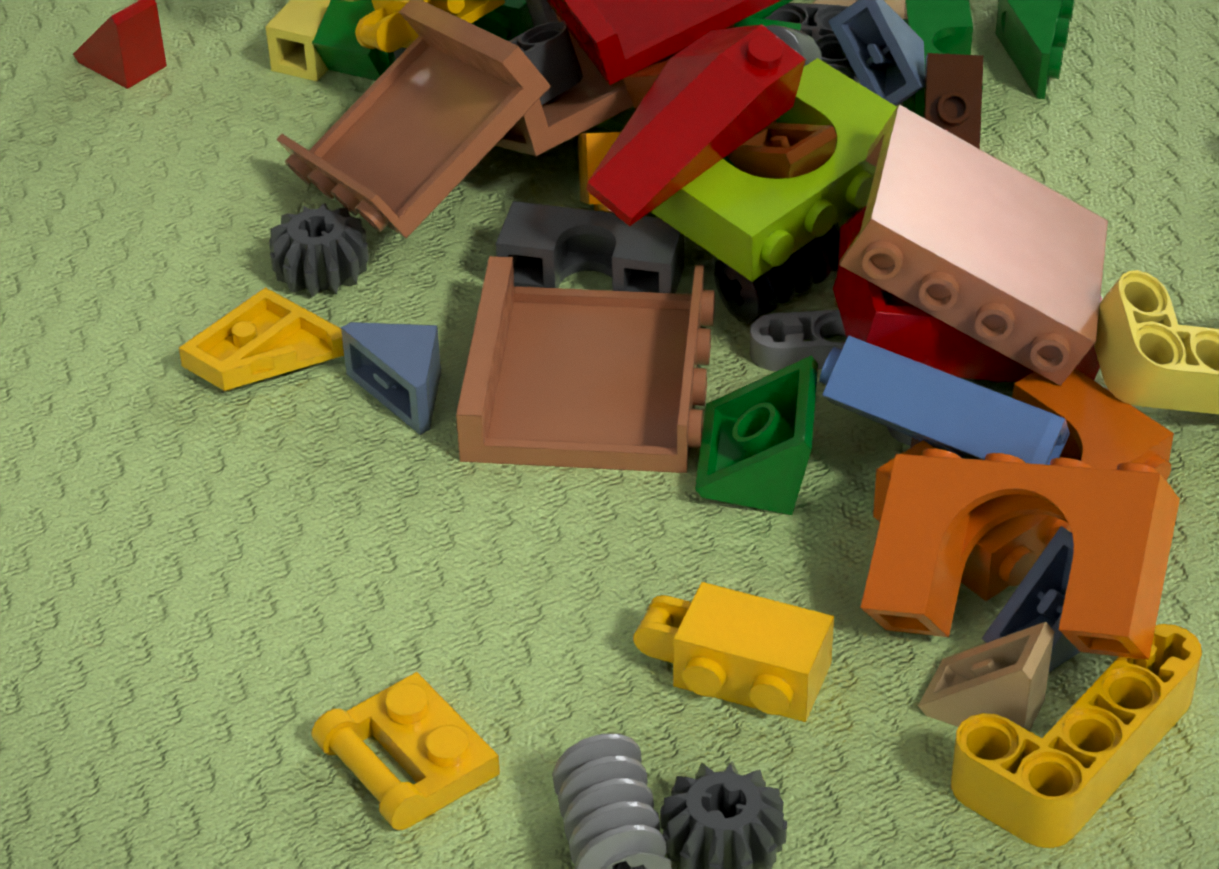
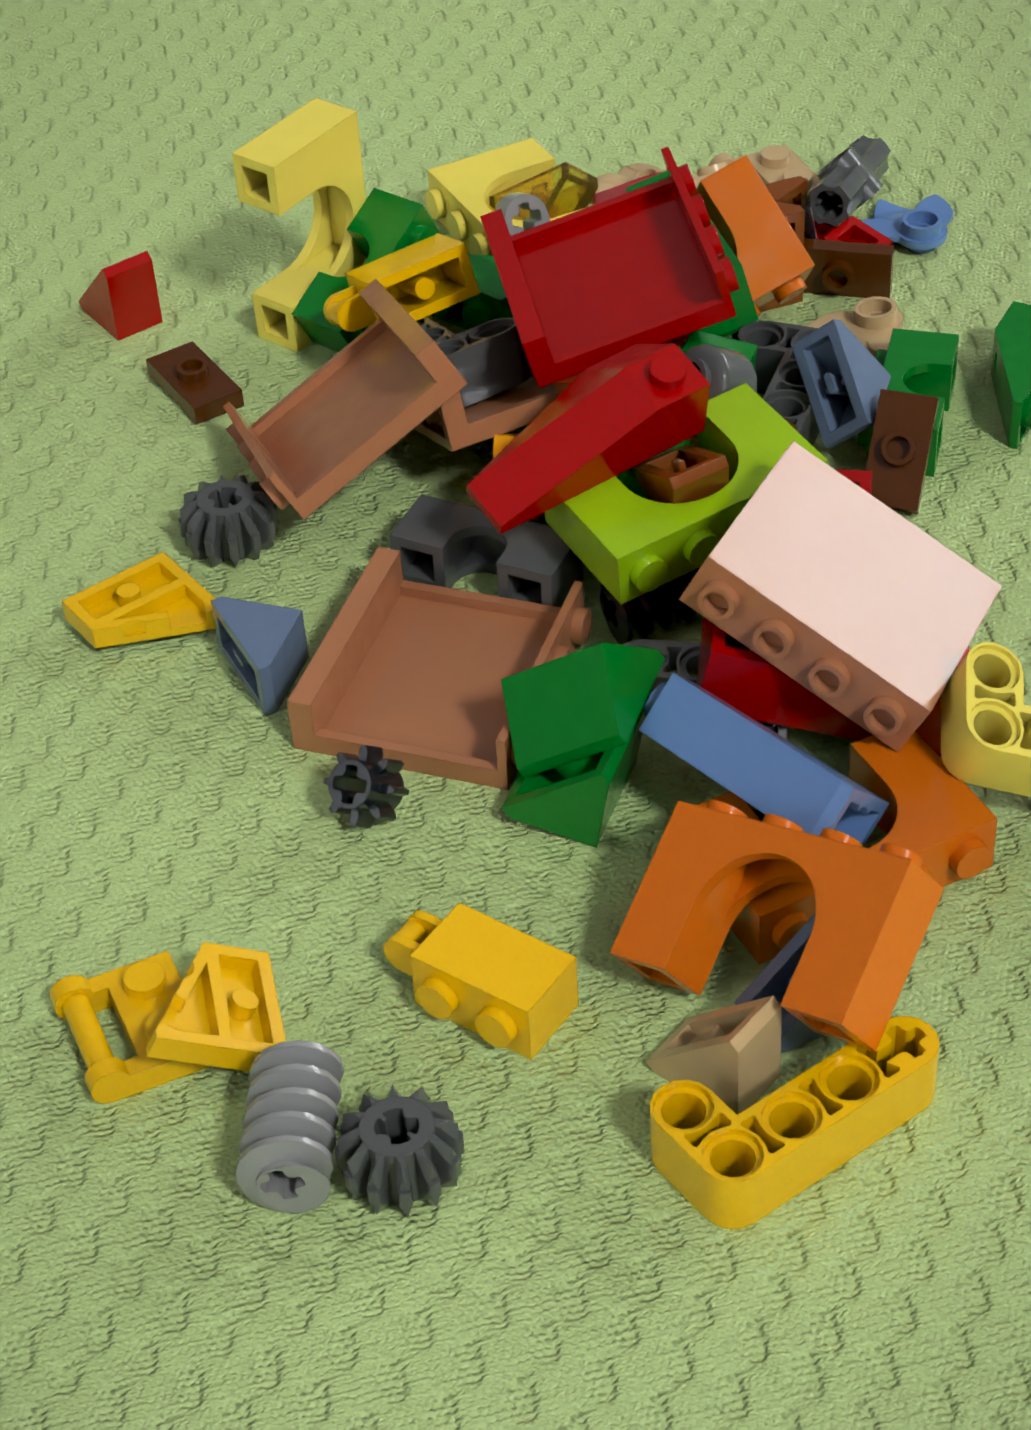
camera: 15 degrees right, 0 degrees up
(226, 120) = (194, 382): none -> reddish brown plate
(500, 721) = (221, 1011): none -> yellow wing
(540, 480) = (366, 786): none -> black gear
(753, 381) = (577, 704): none -> green slope

